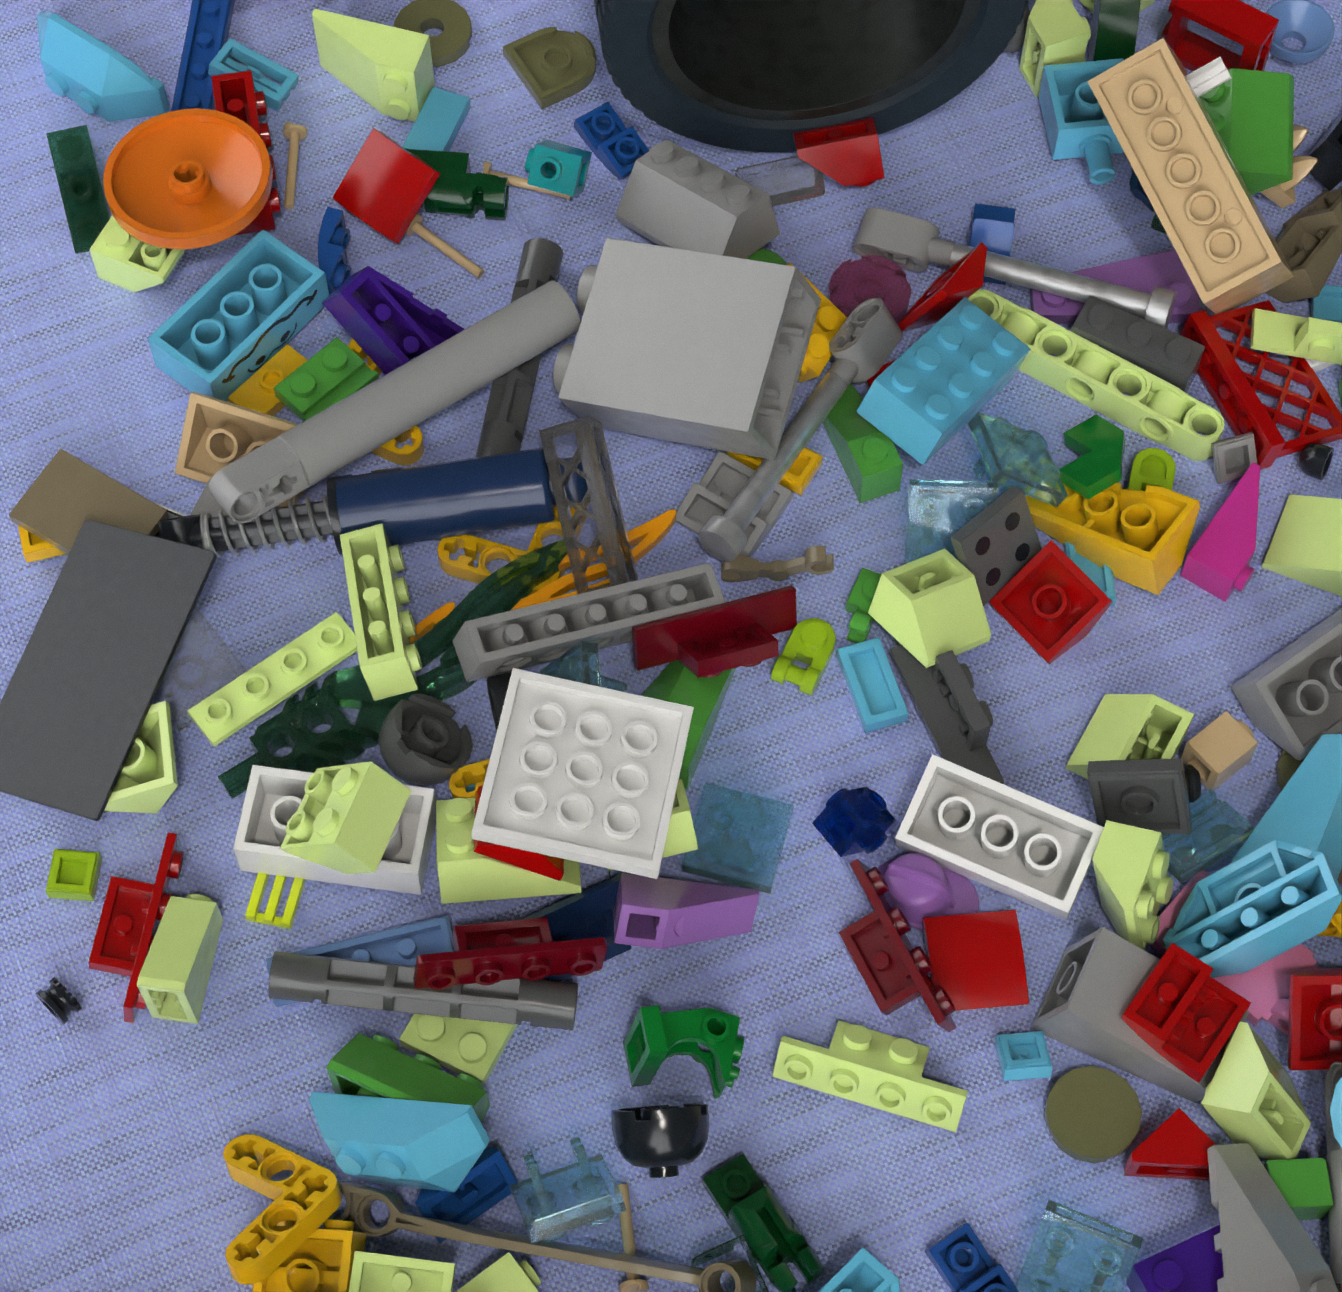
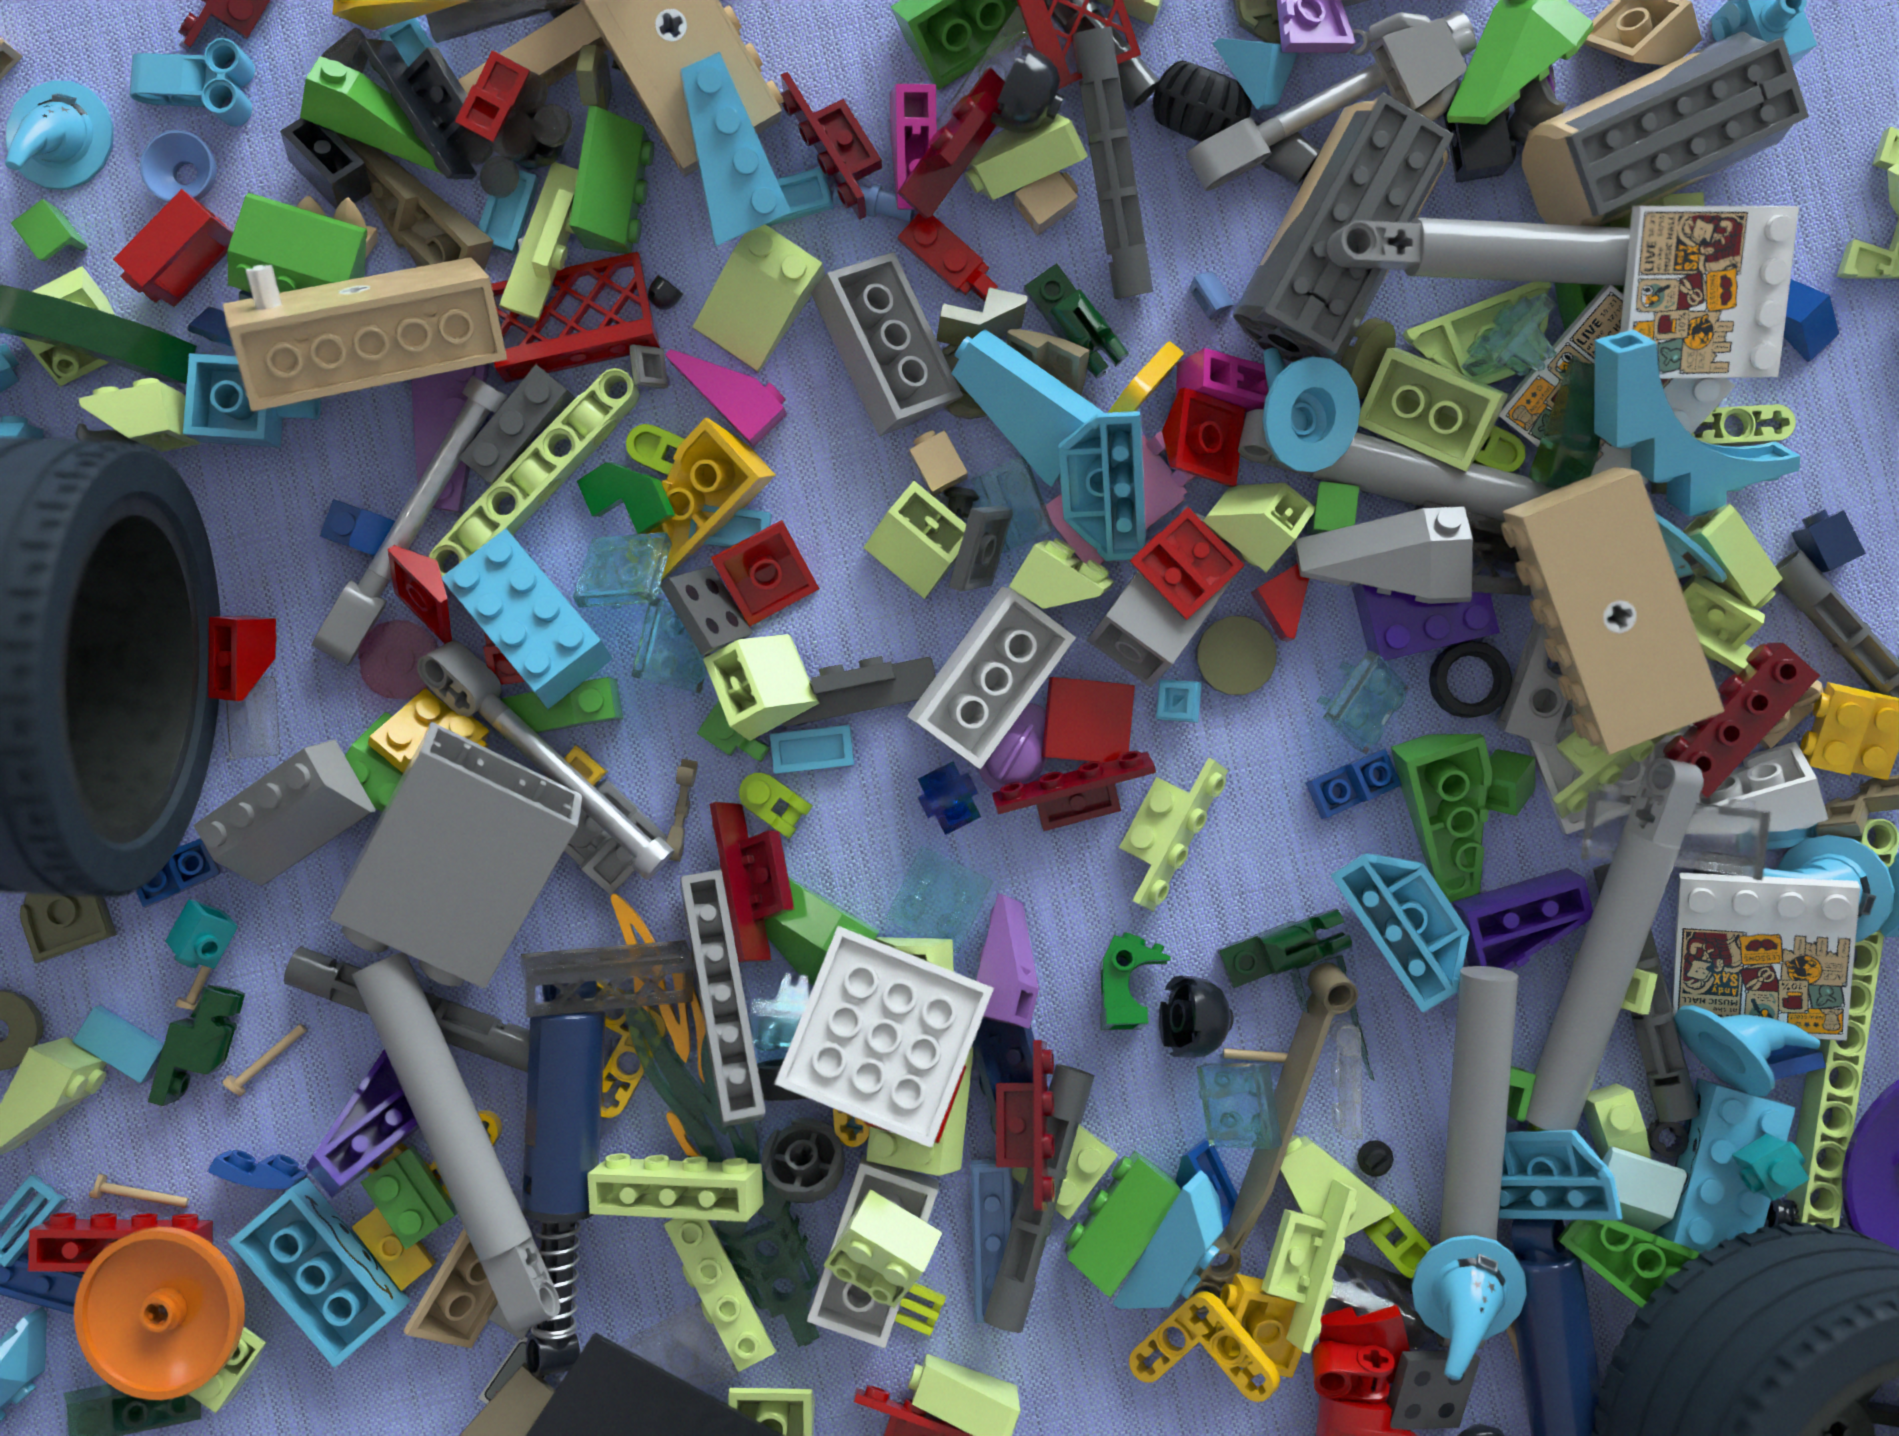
camera: 80 degrees left, 25 degrees up
(386, 185) = (191, 1109): red slope -> none

